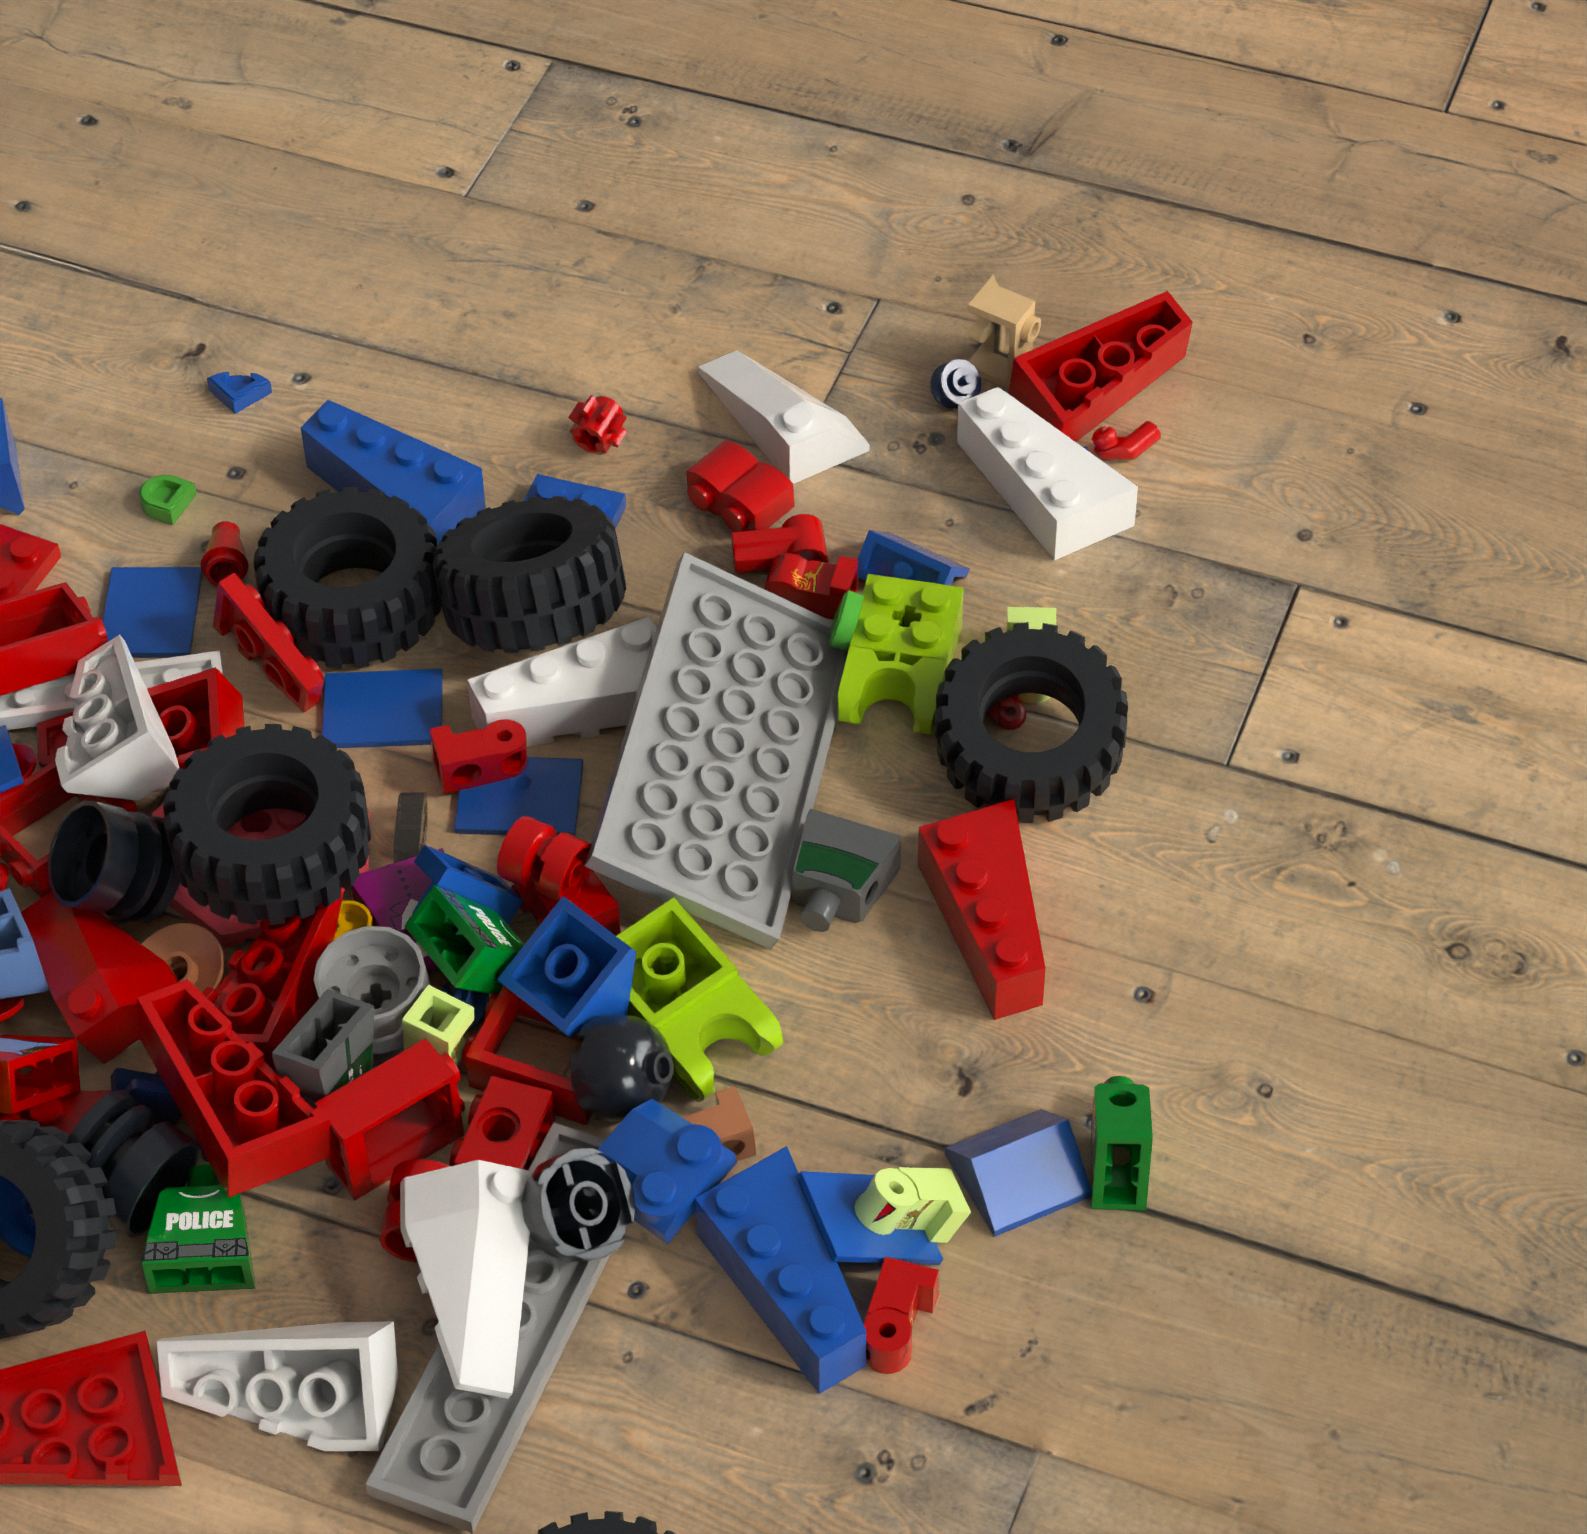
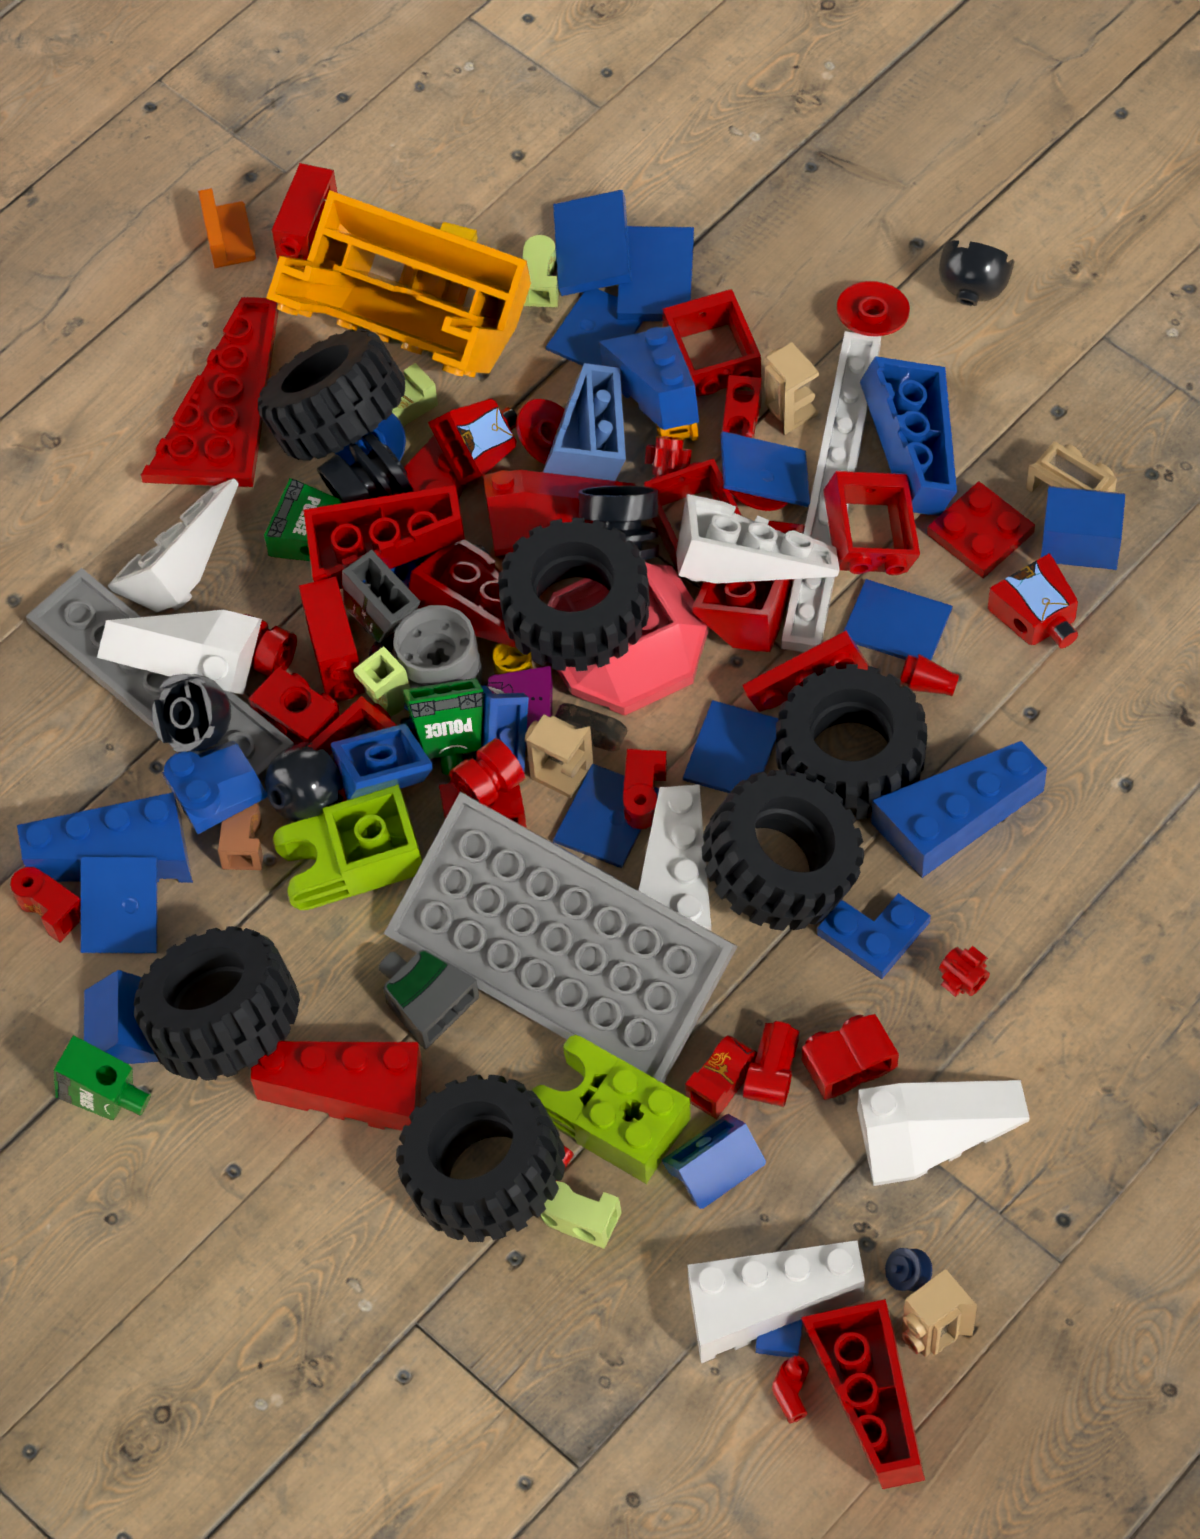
camera: 115 degrees right, 10 degrees up
(90, 484) = (1036, 603): none -> red torso
(166, 497) = (1013, 655): bright green tile -> none
(238, 390) = (1121, 733): blue tile -> none
(468, 816) = (558, 754): none -> tan window
(845, 620) = (648, 1065): bright green tile -> none
(914, 1201) = (117, 930): yellowish green leg -> none
(936, 965) = (216, 1003): none -> black tyre

